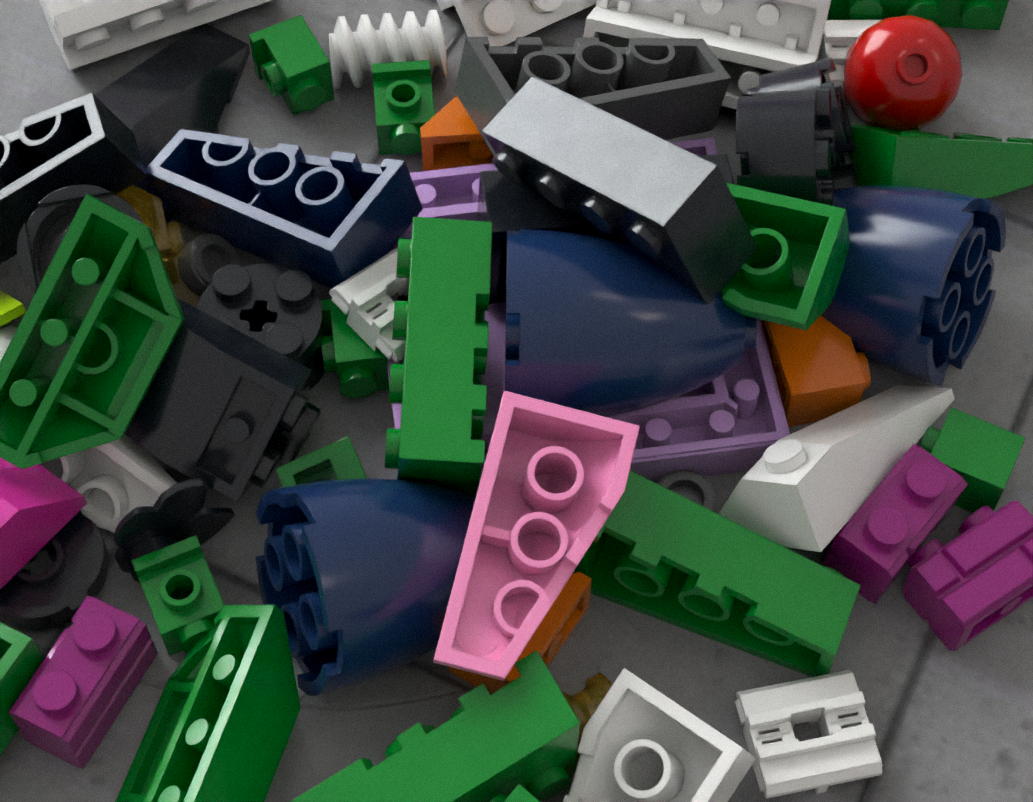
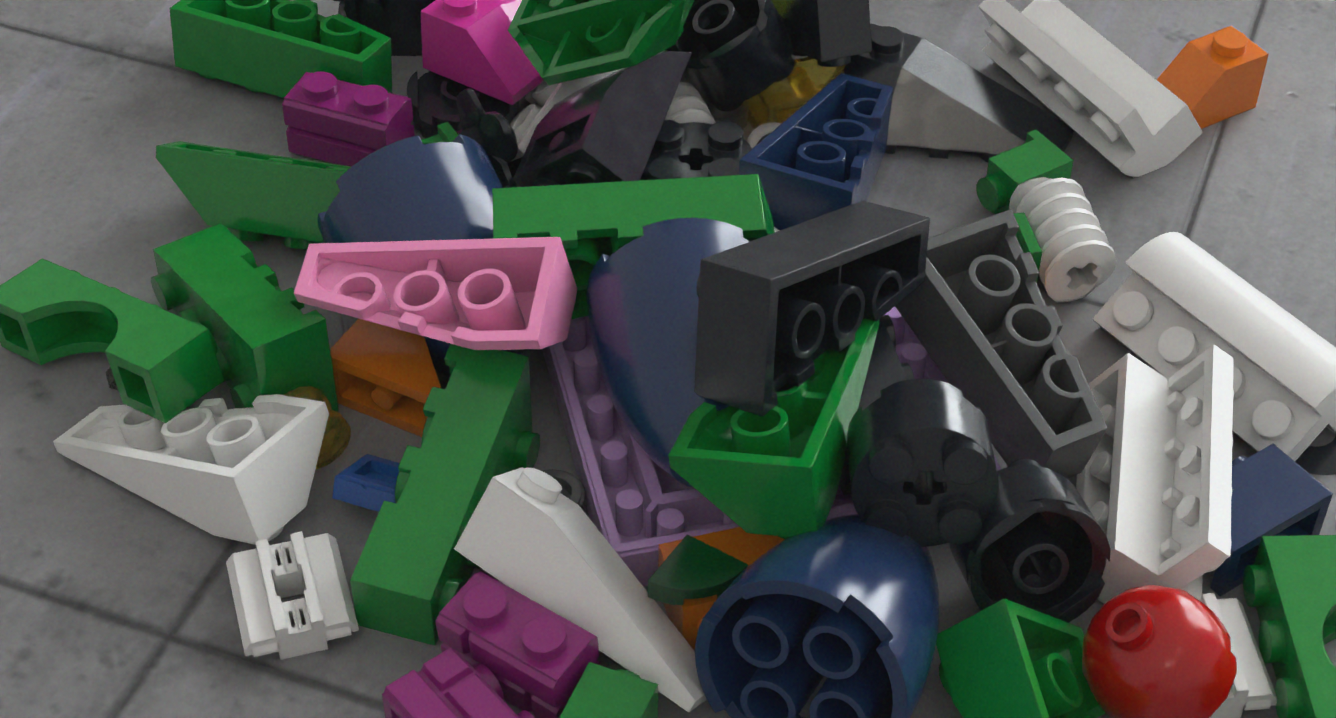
camera: 85 degrees right, 15 degrees down
(669, 651) = (367, 482): none -> blue tile
(842, 362) = (693, 573): none -> dark green tile

